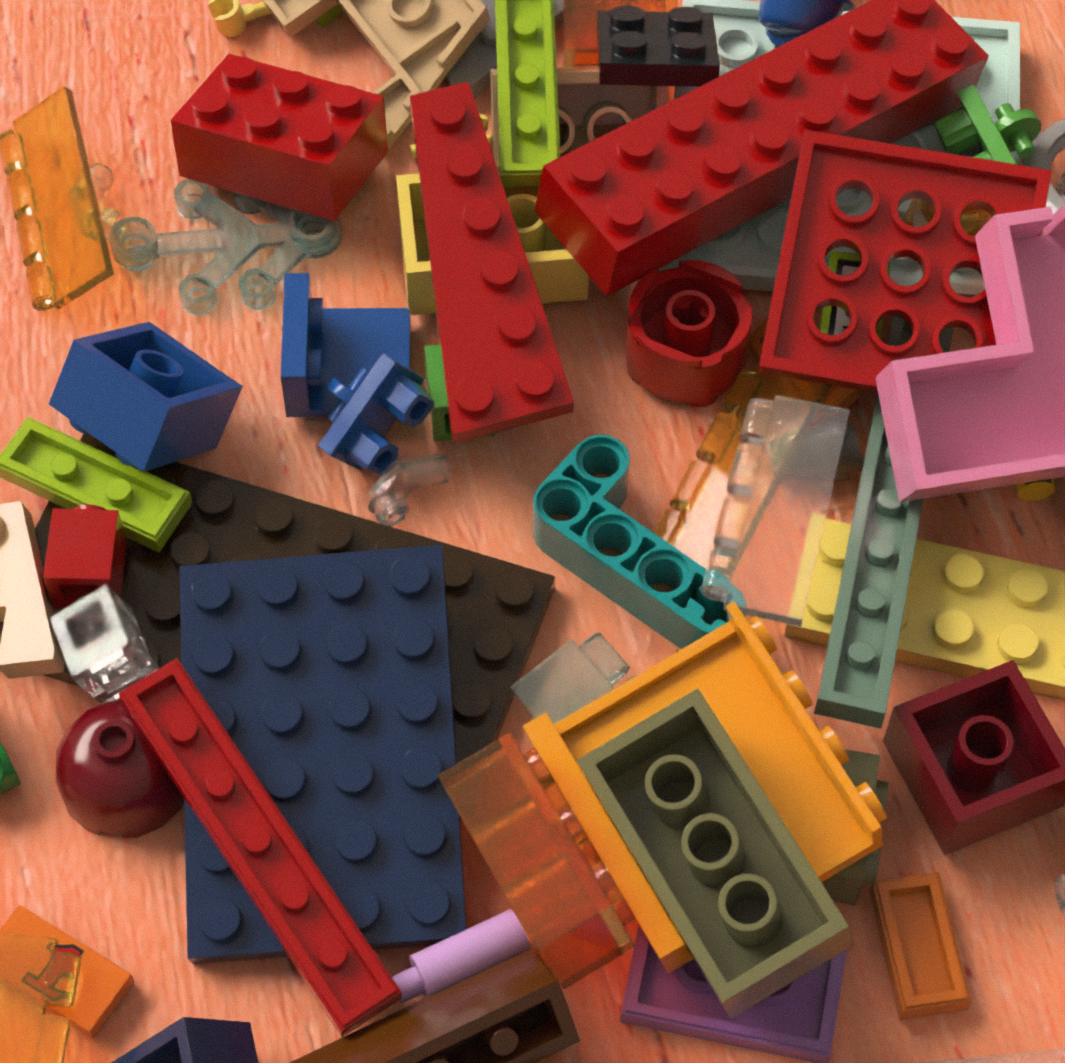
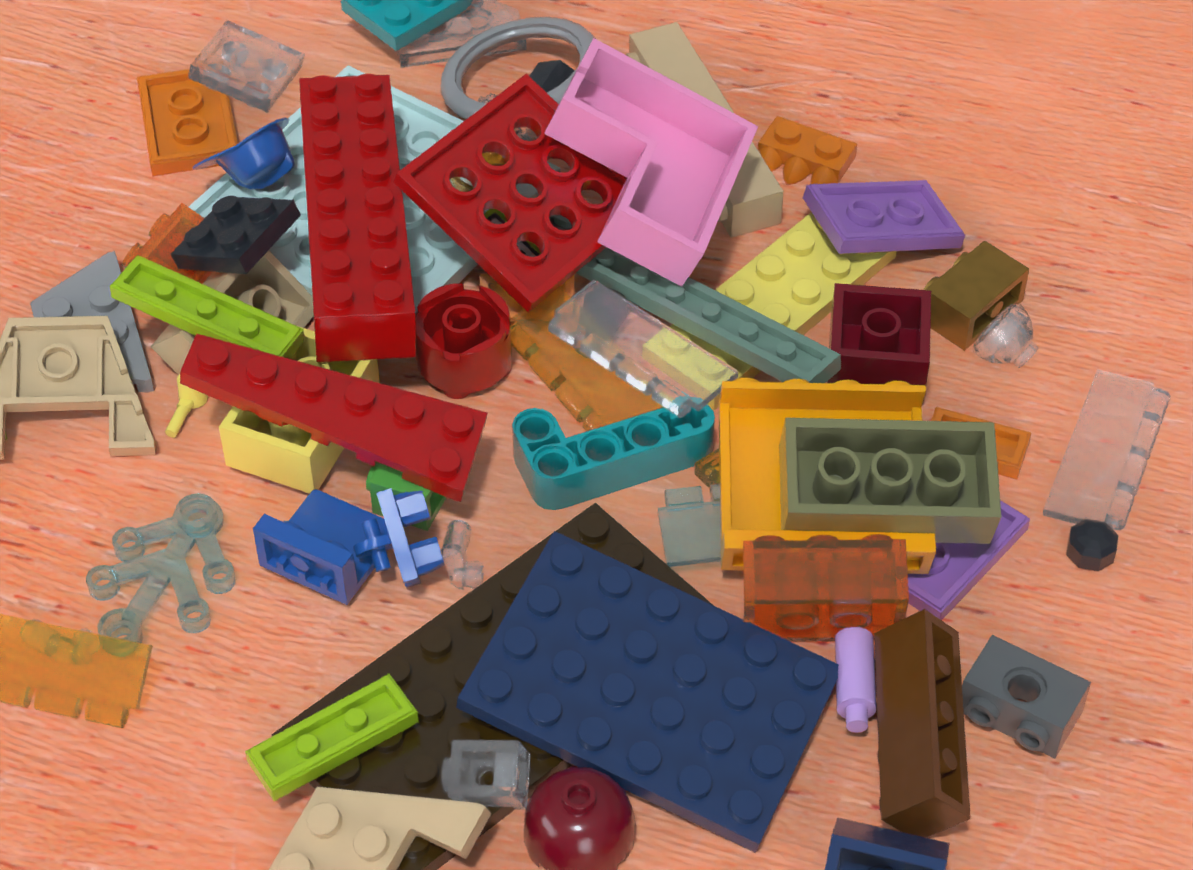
camera: 60 degrees left, 10 degrees down
(83, 553) = (403, 756): red brick -> none
(144, 396) = (289, 665): blue brick -> none
(260, 848) = (710, 746): red tile -> none
(280, 136) = (113, 489): red brick -> none
(973, 126) = (434, 112): bright green hips -> none

